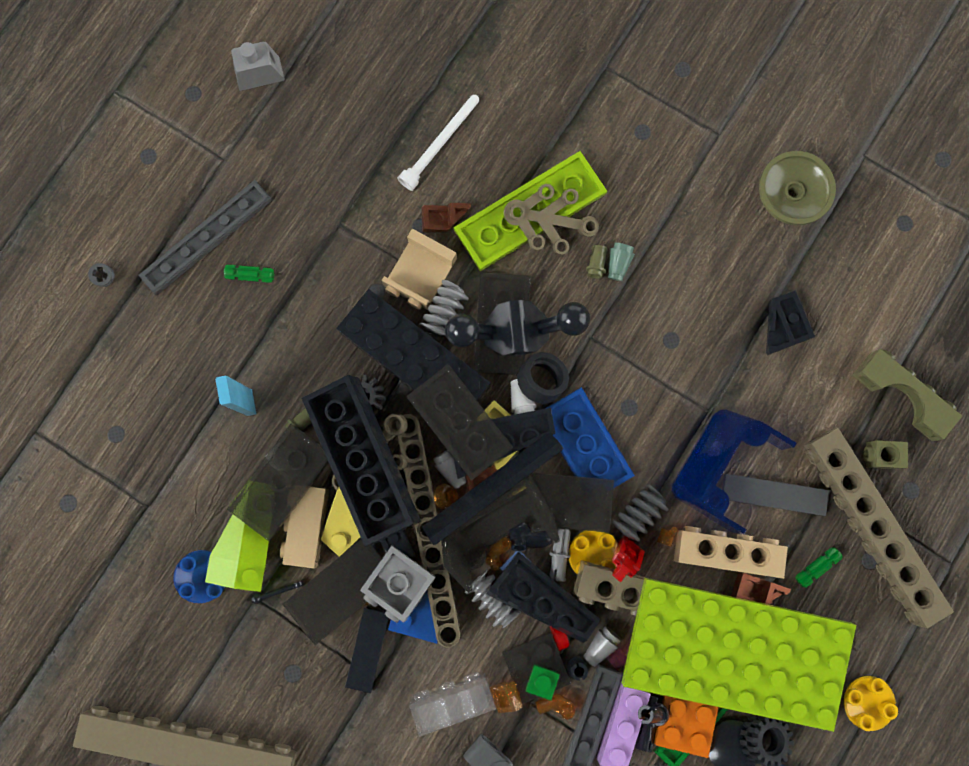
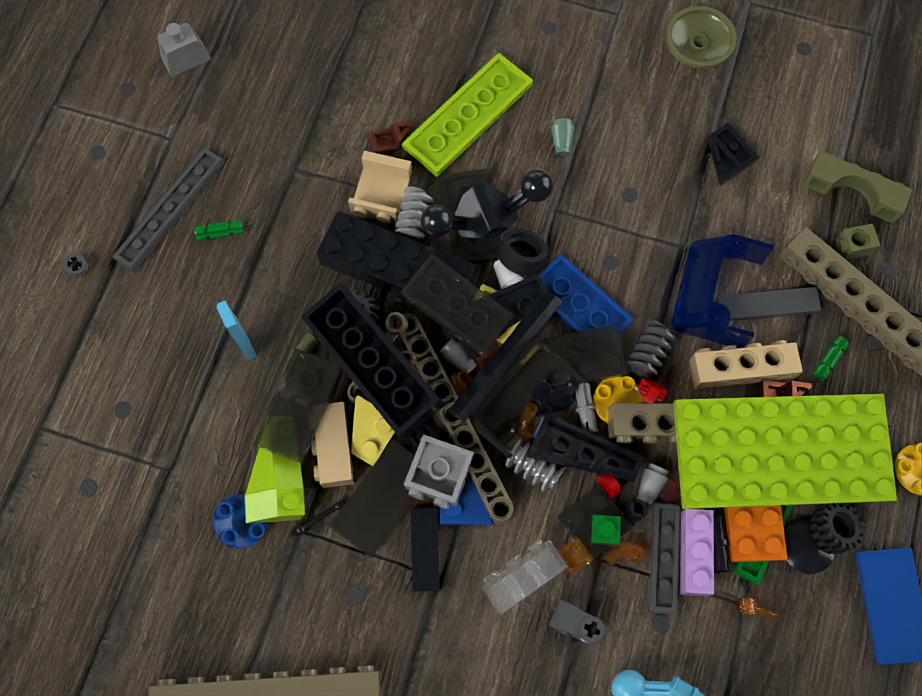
camera: 15 degrees left, 10 degrees down
(410, 177) = (349, 112): white piece -> none
(547, 219) = (486, 114): dark tan plant -> none
(597, 262) = (543, 148): olive pin -> none
(656, 714) = (724, 528): black pin -> none
(667, 536) = (682, 366): clear orange hand -> none

